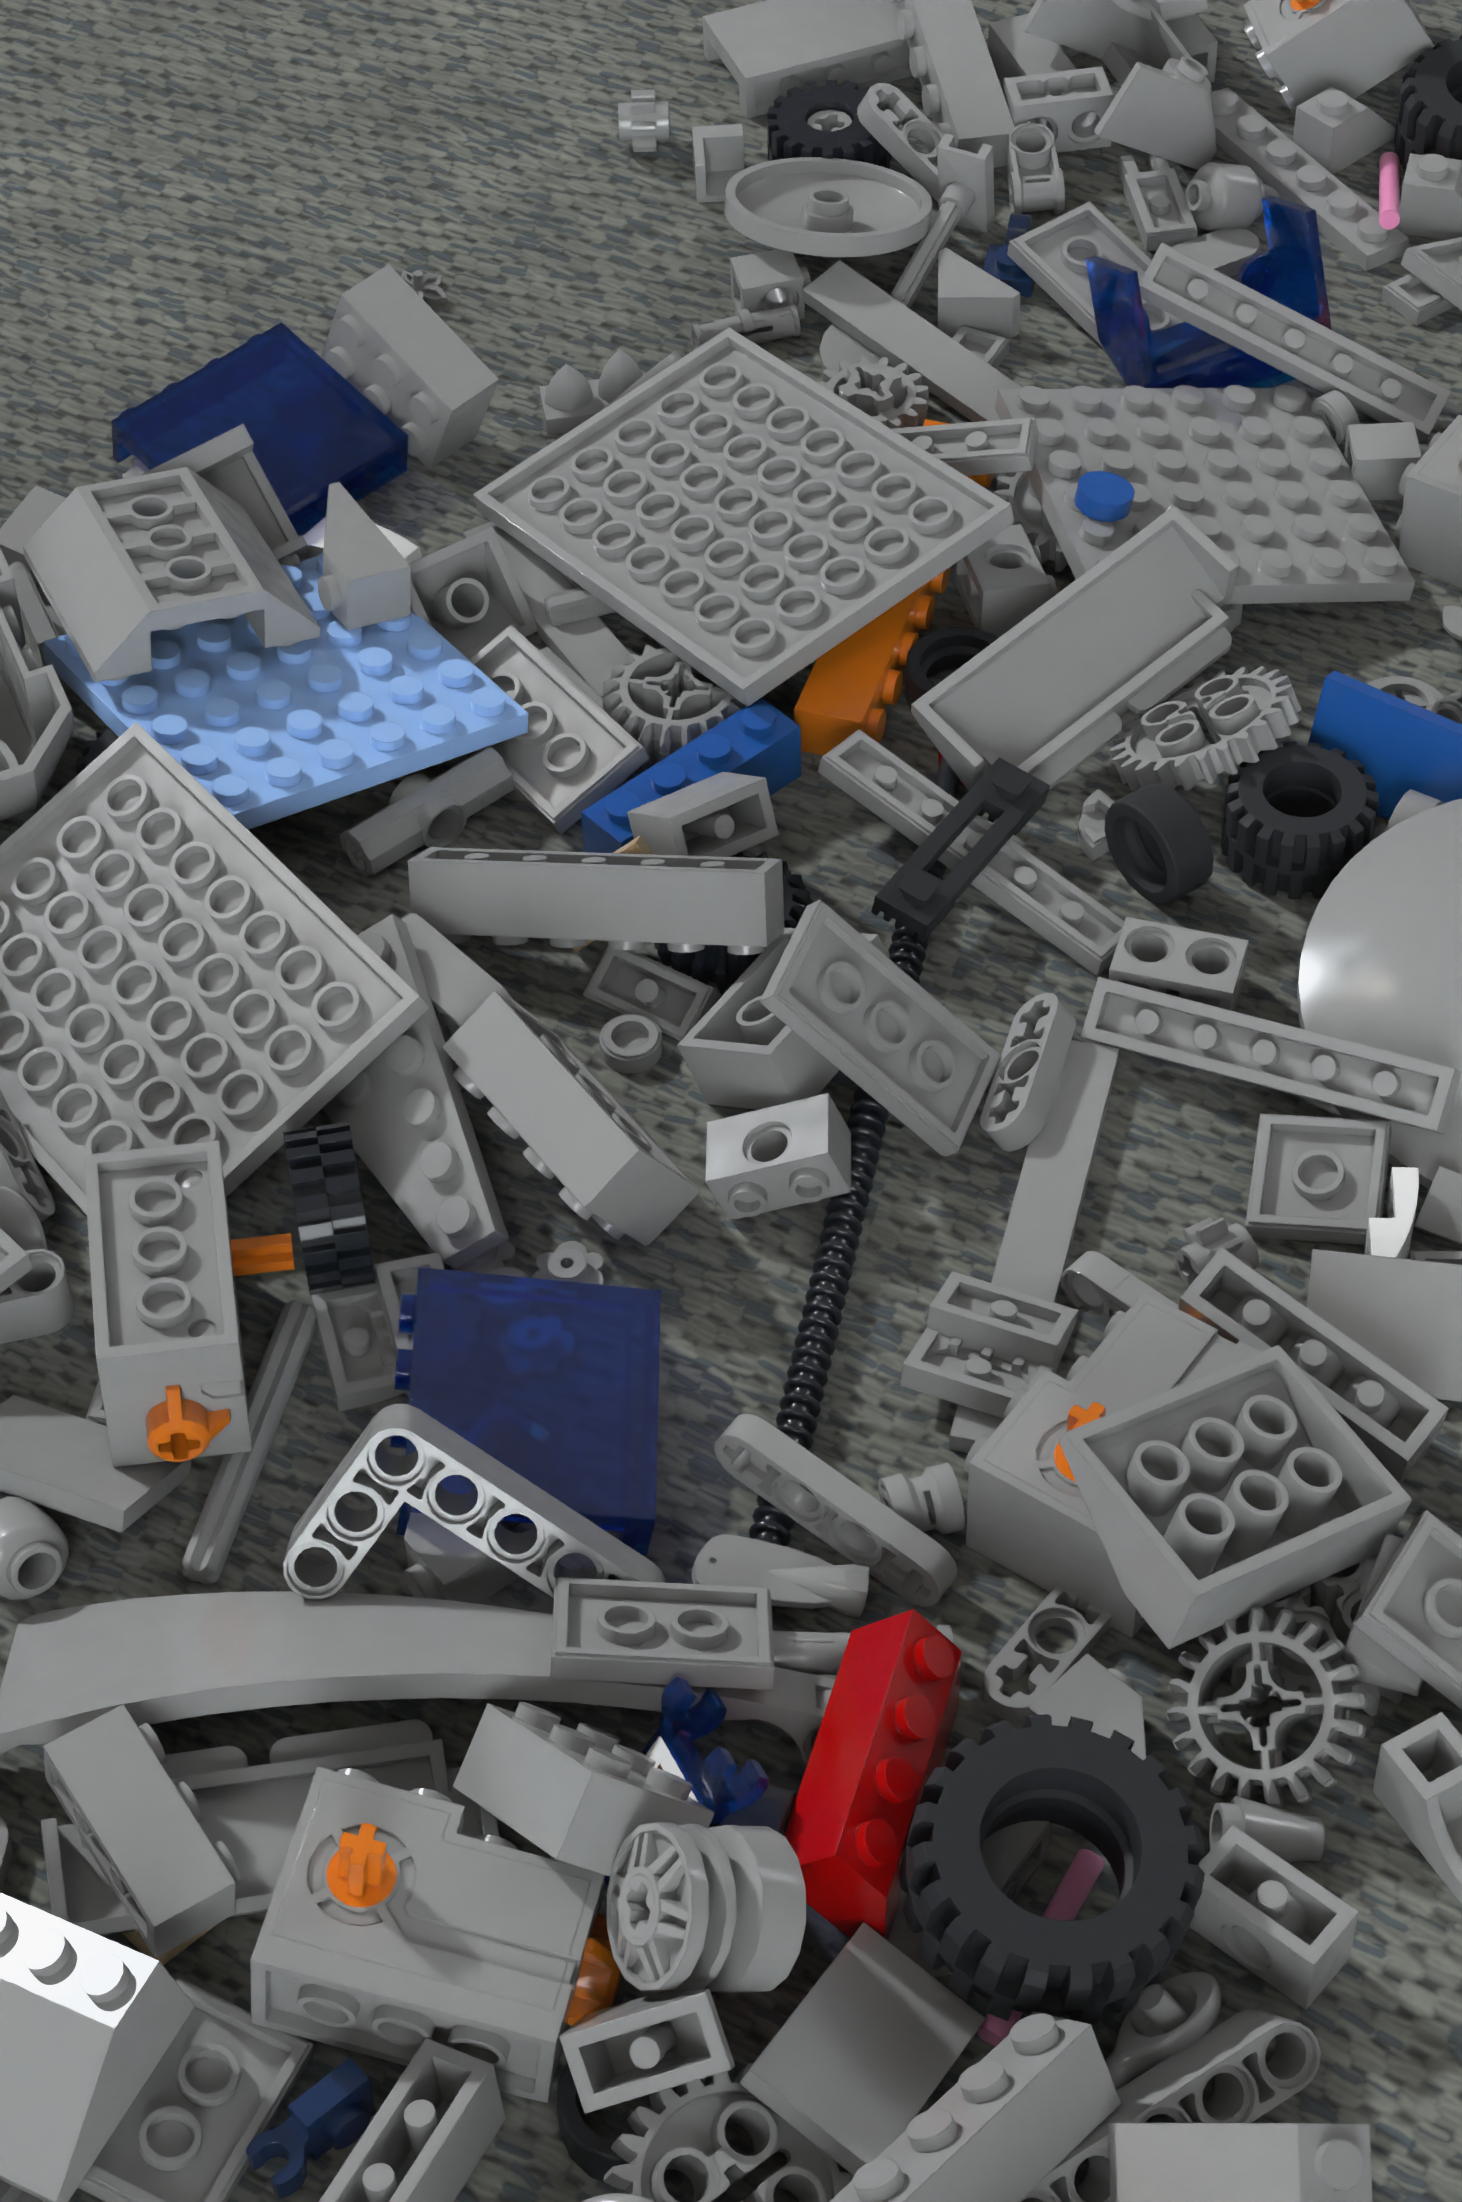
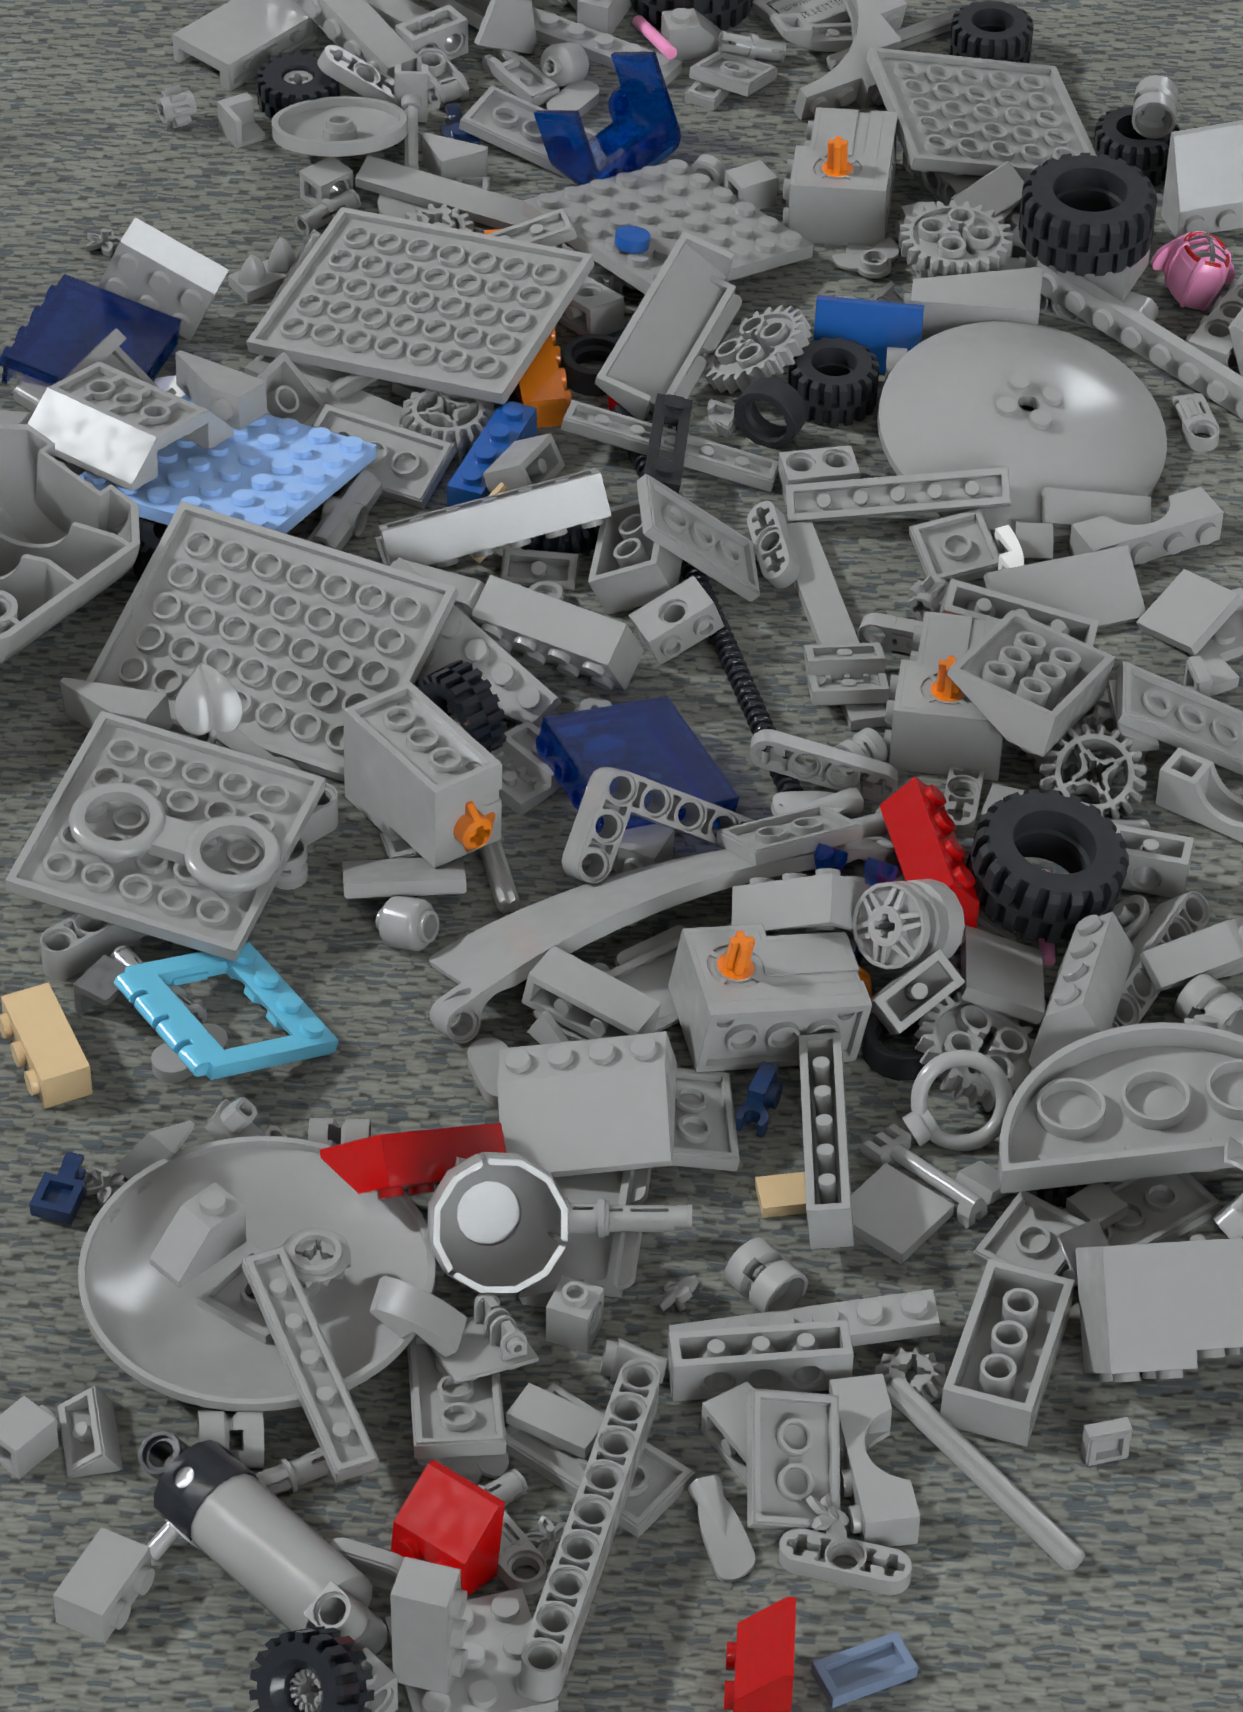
camera: 30 degrees left, 5 degrees down
(1290, 341) = (666, 132): light grey plate -> none

